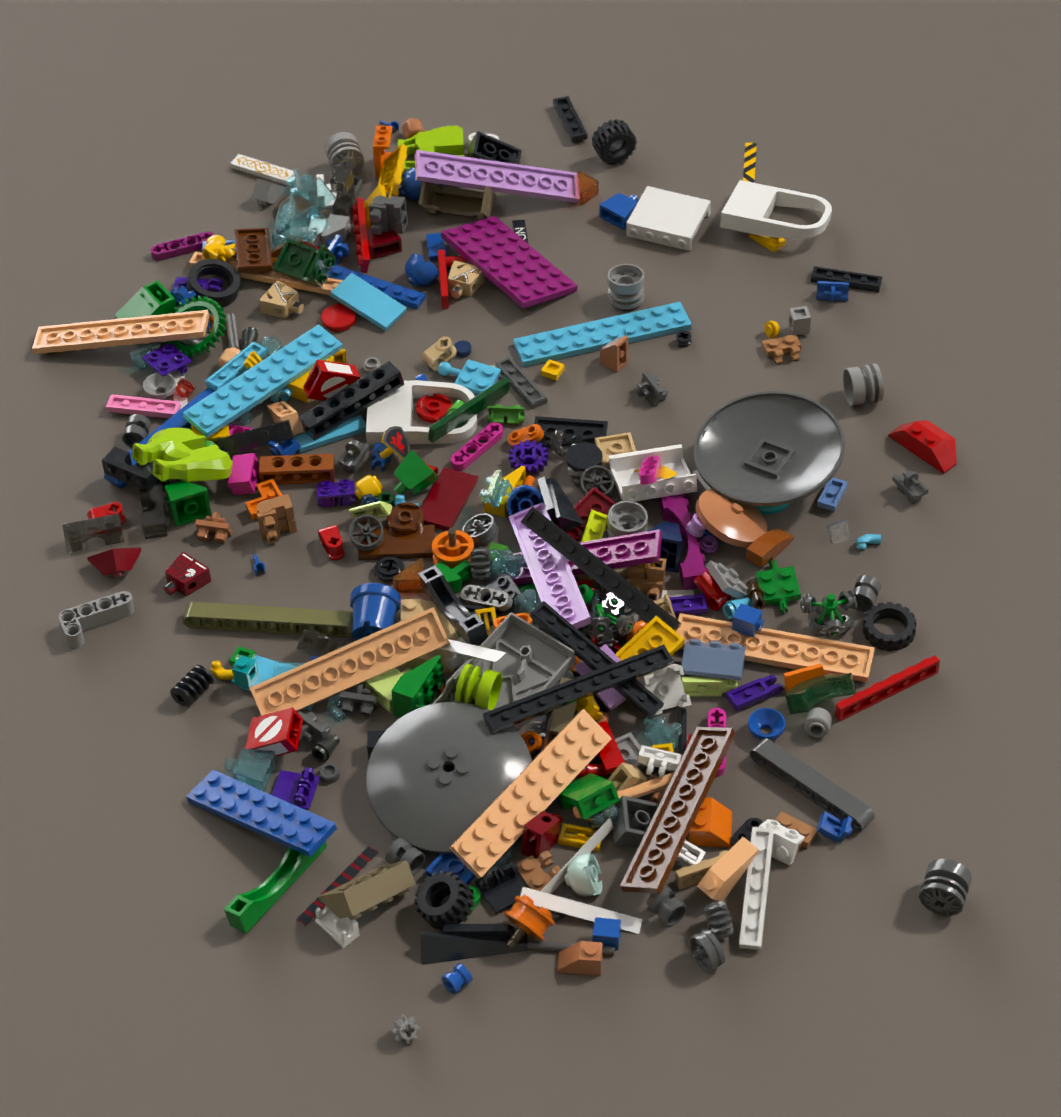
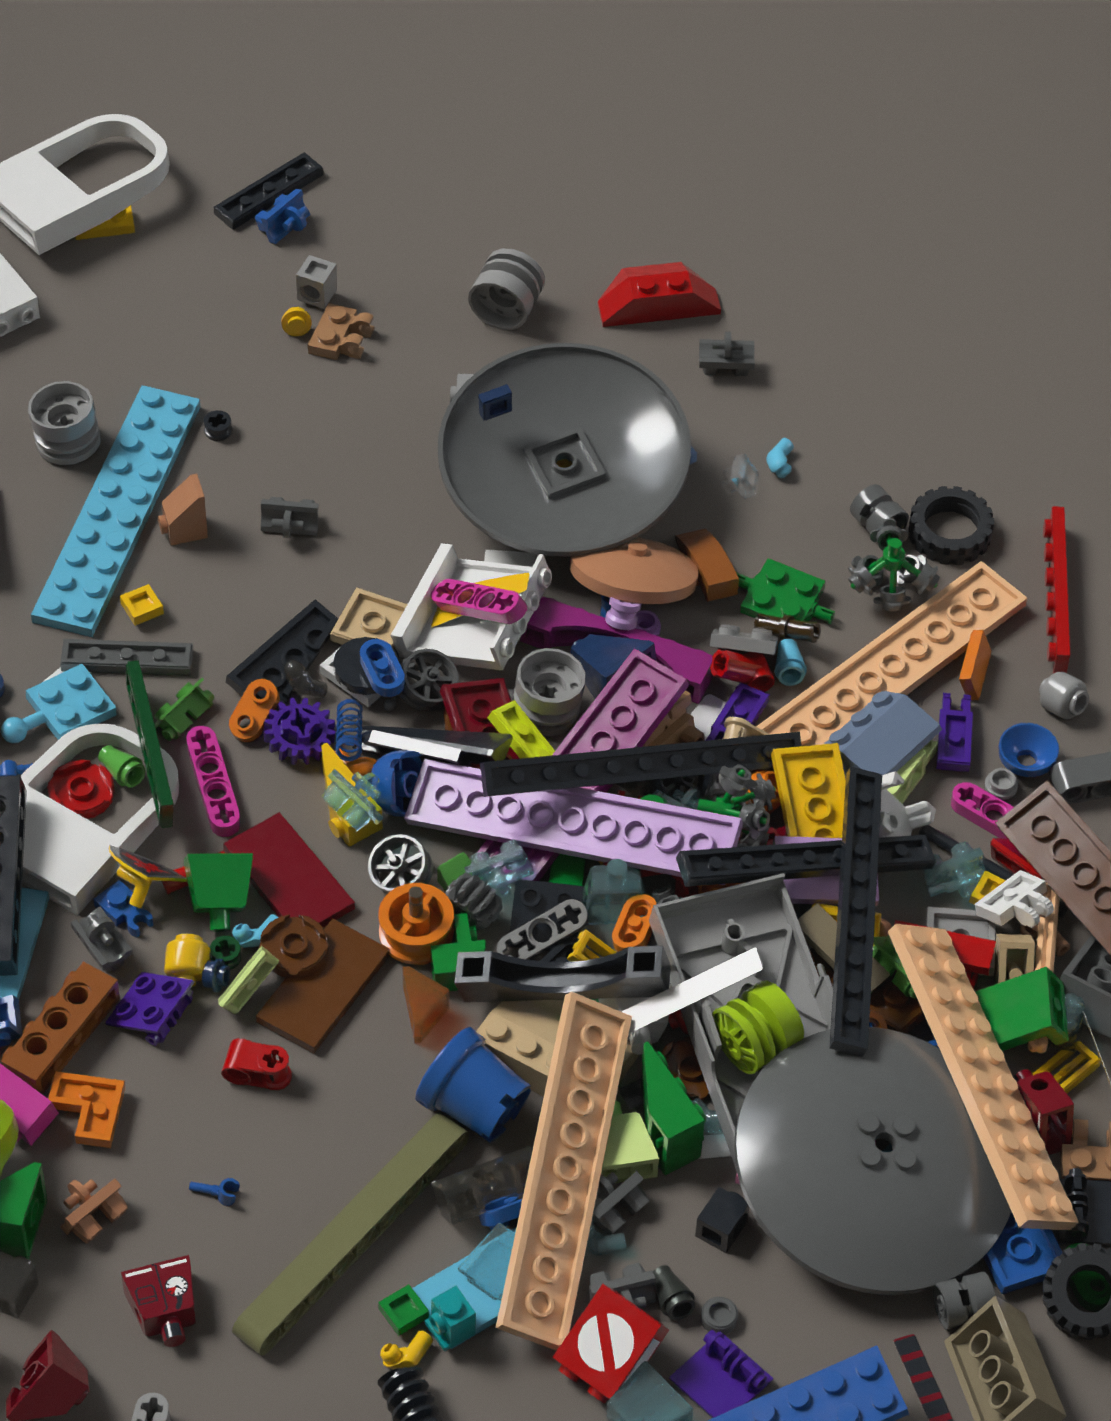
camera: 60 degrees left, 5 degrees up
(275, 516) = (156, 1112): medium nougat hips -> none
(366, 532) = (294, 1007): dark grey wheel -> none
(384, 564) = (373, 1011): black gear -> none
(540, 471) = (350, 739): none -> blue piece
(581, 459) = (384, 670): none -> blue plate
(739, 725) = (1001, 783): none -> light grey plate
(747, 620) = (839, 660): blue brick -> none
(763, 405) = (495, 402): none -> dark blue tile
(810, 692) = (1011, 659): clear green arch -> none

